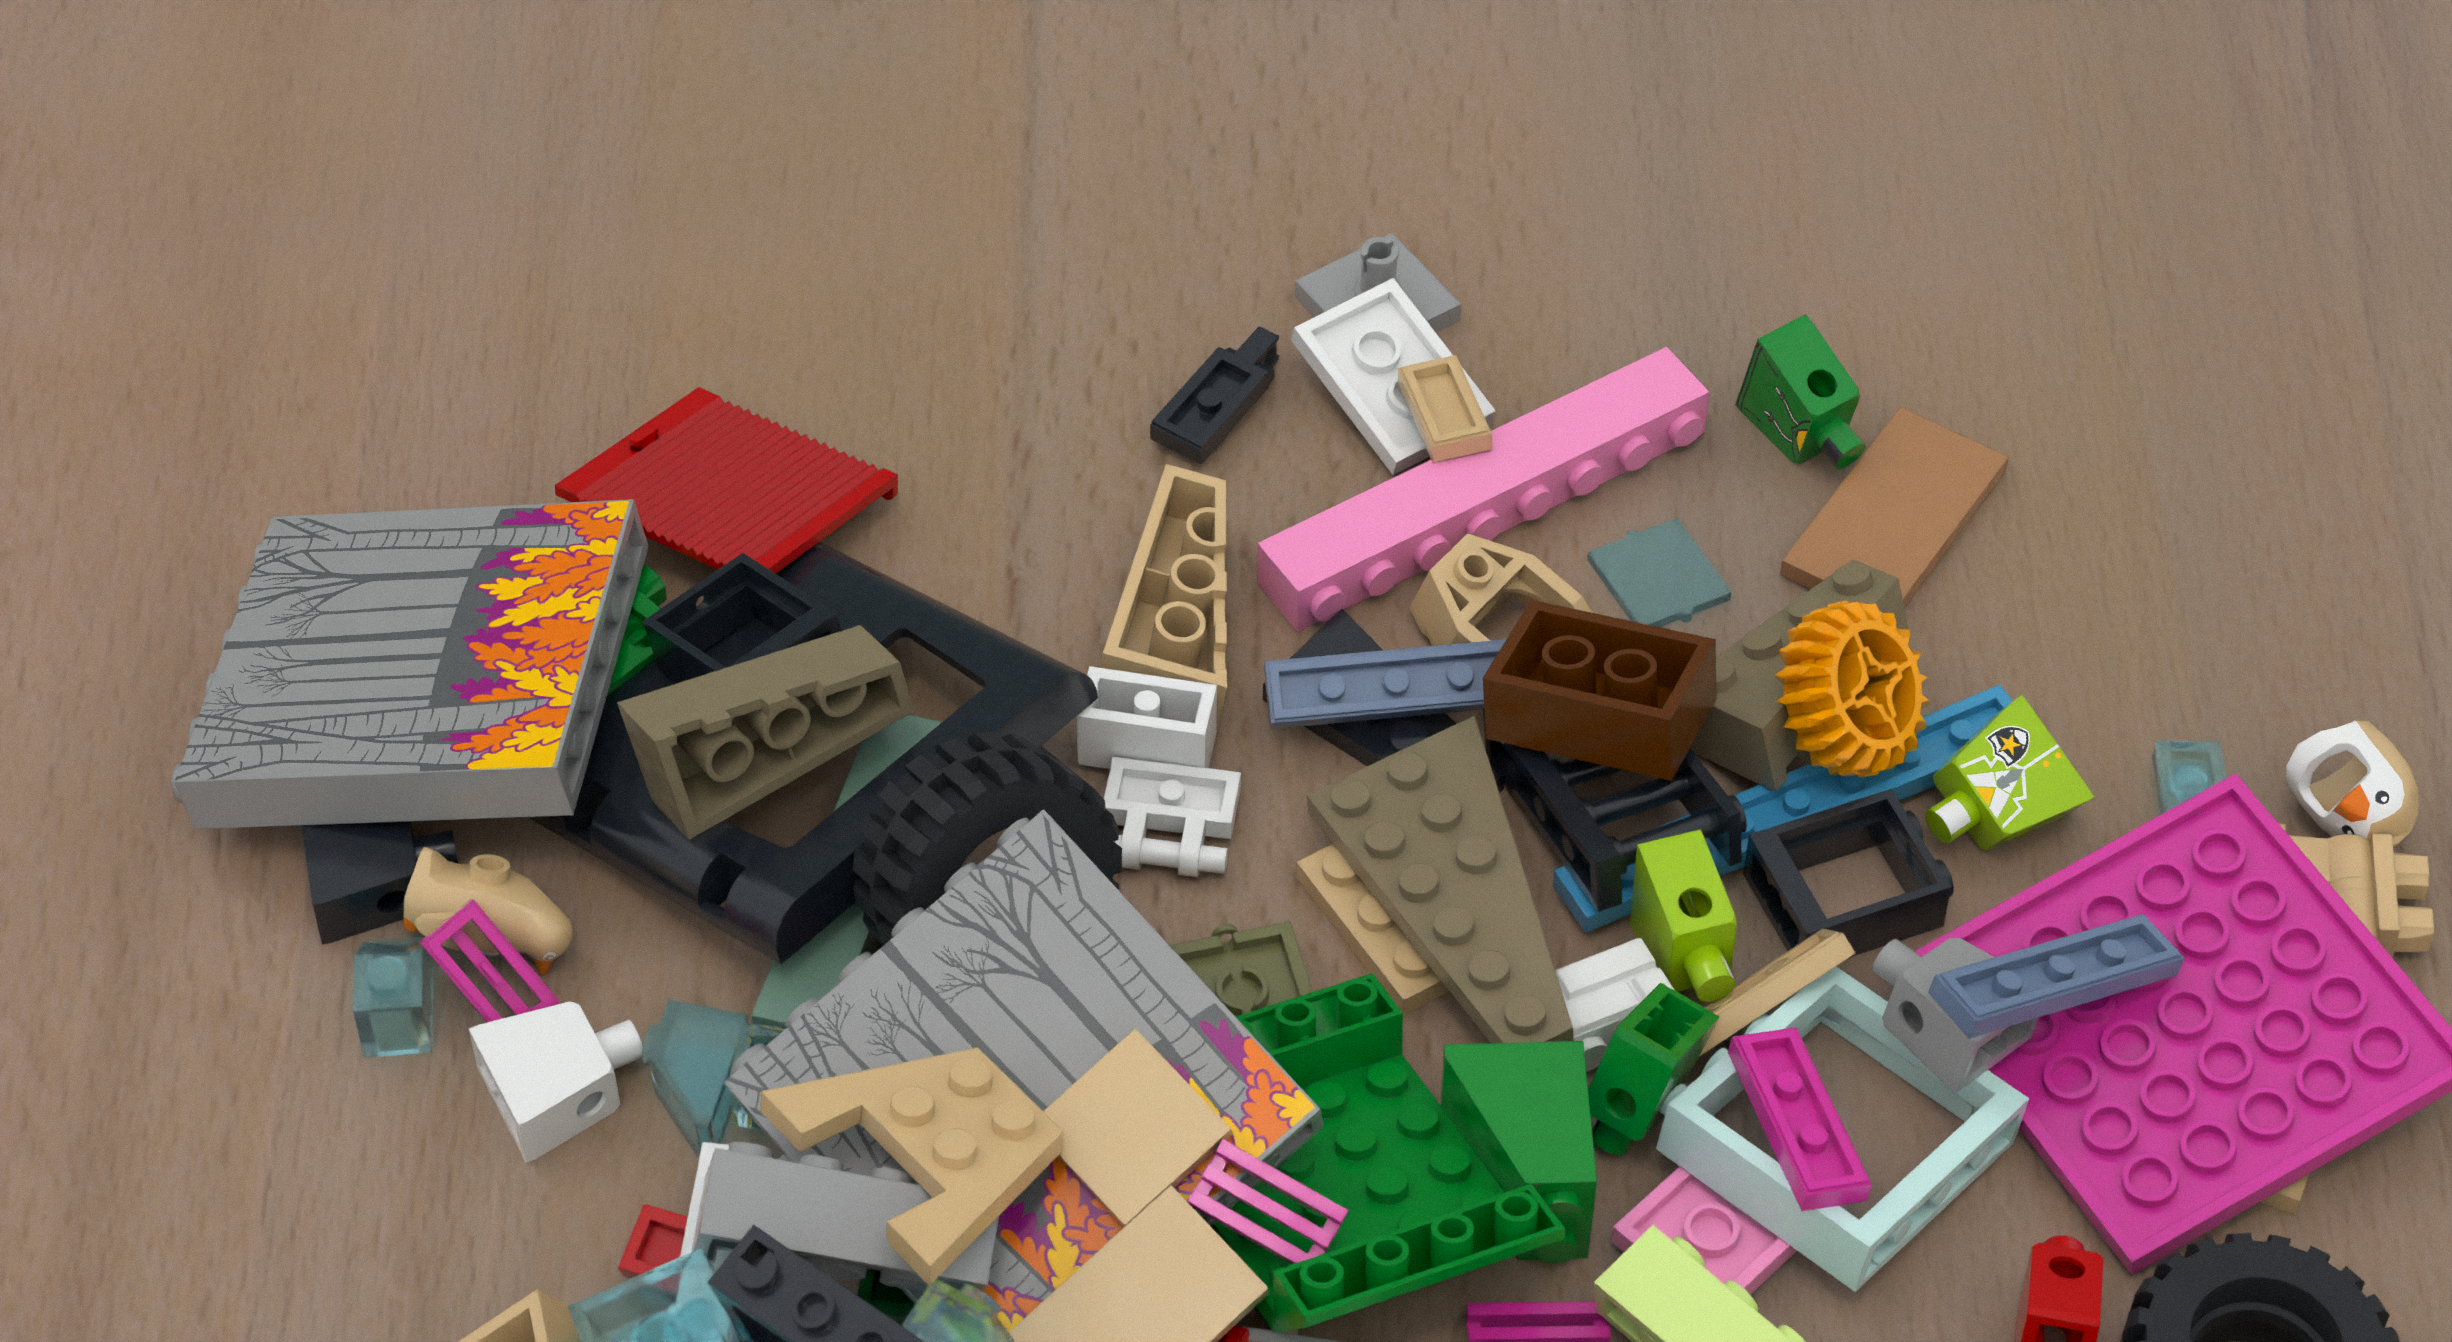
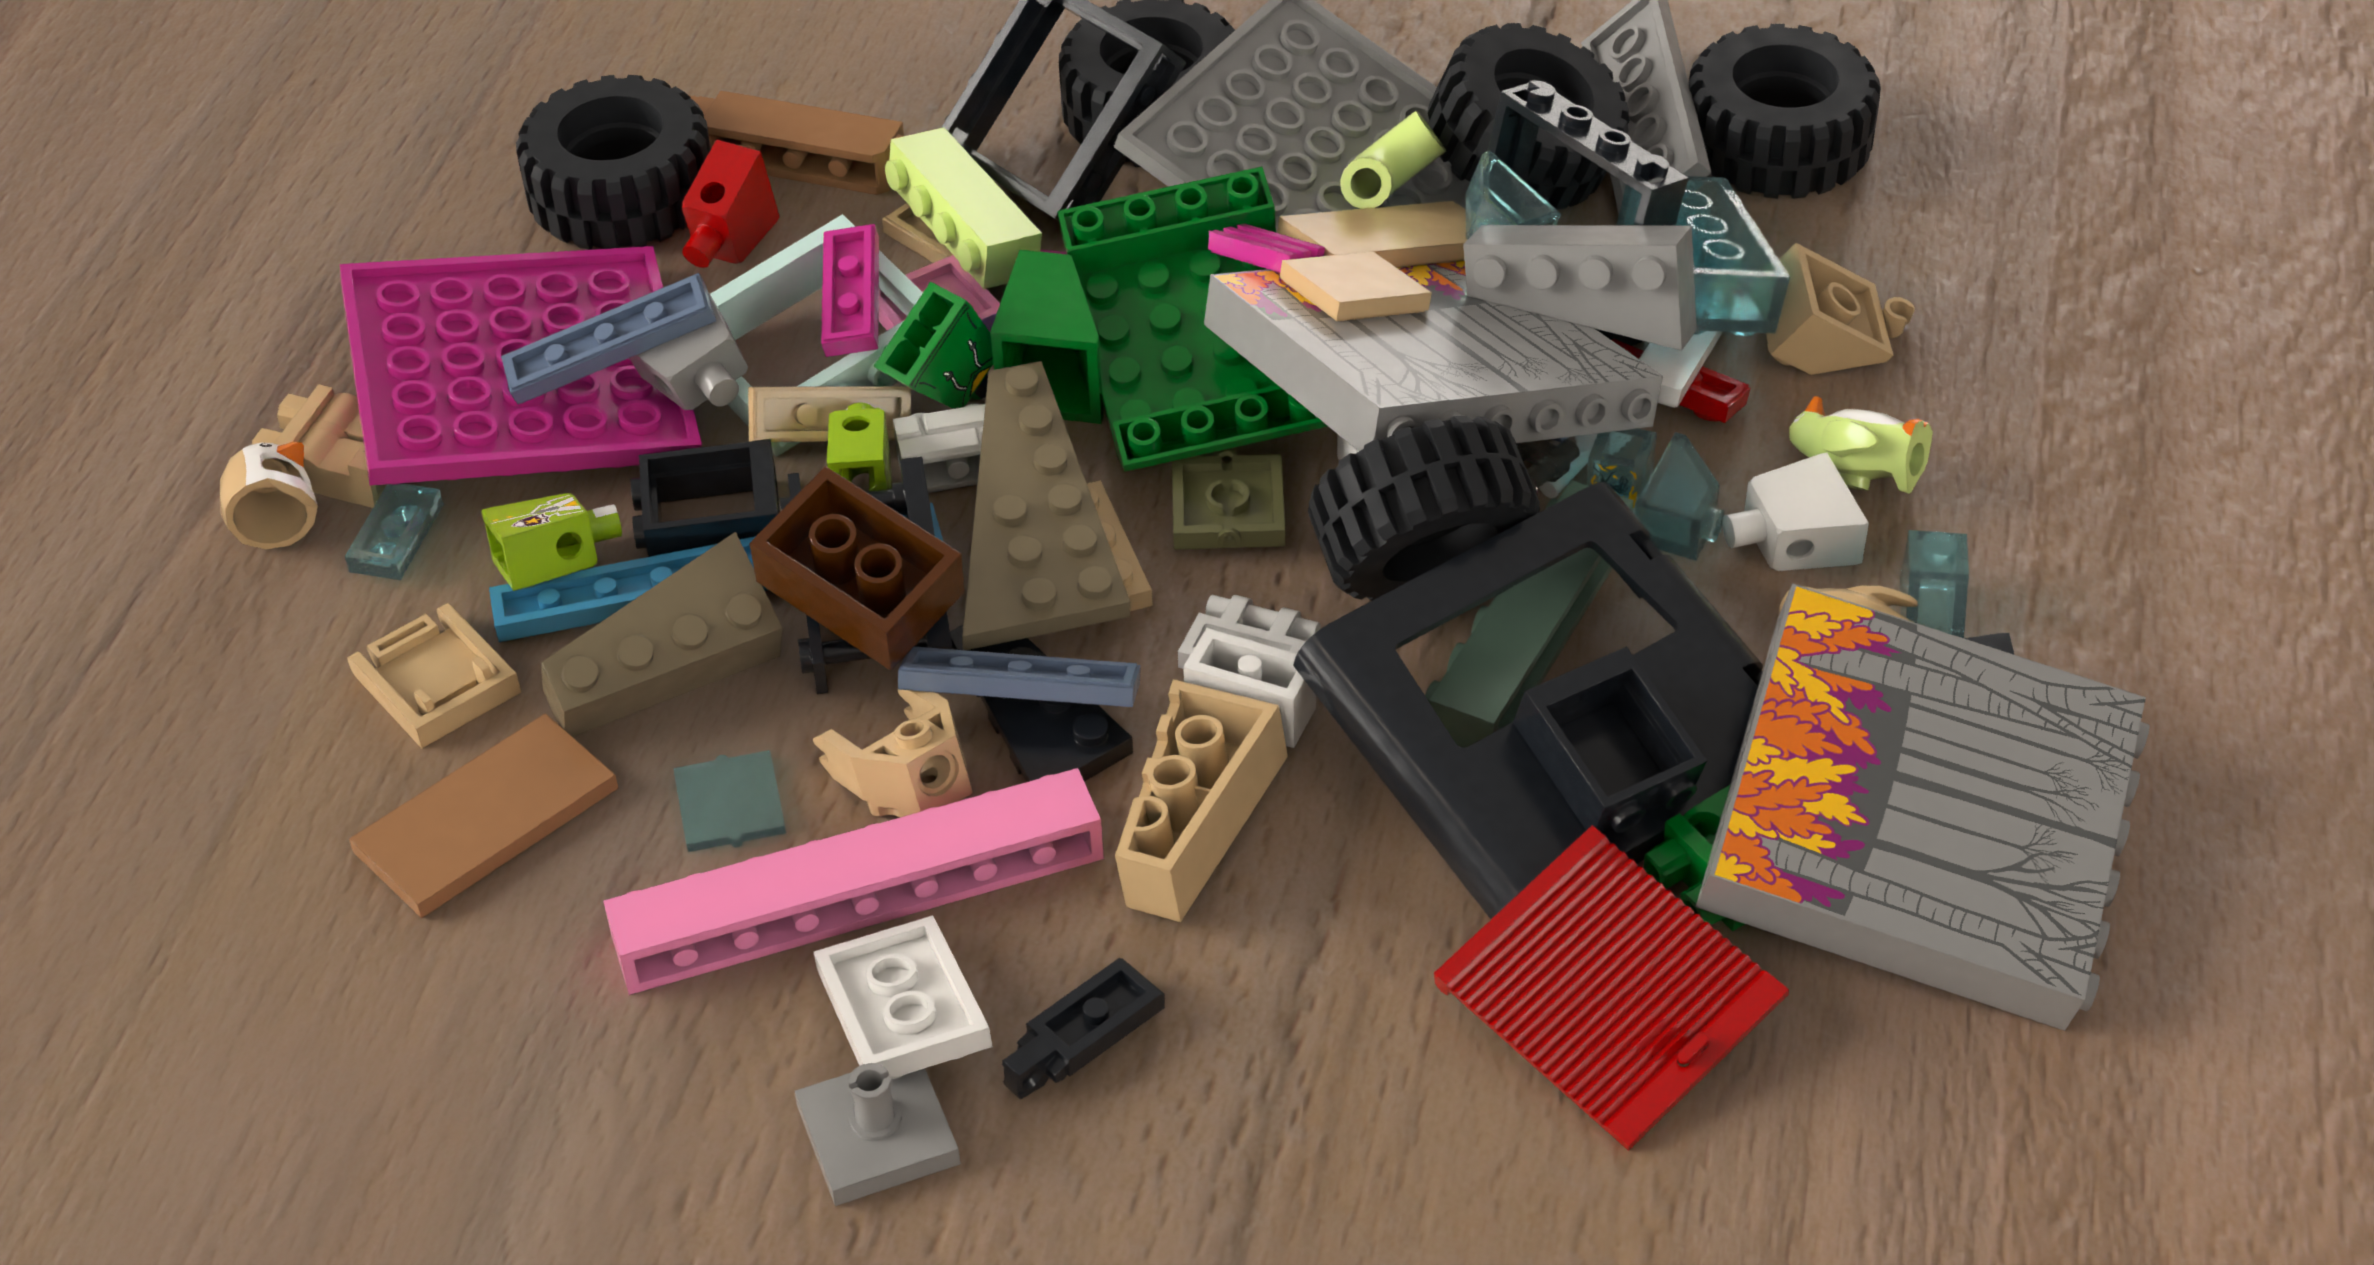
camera: 165 degrees left, 5 degrees down
(452, 928) = (1852, 569): dark pink tile -> none
(474, 1170) = (1864, 444): none -> yellowish green animal
(761, 724) = (1649, 603): dark tan wedge -> none
(949, 1124) = (1494, 275): tan wing -> none
(1444, 408) = (871, 917): tan tile -> none
(1801, 395) = (513, 881): green torso -> none
(1852, 689) = (640, 559): light orange gear -> none
(2056, 657) = (435, 678): none -> tan container

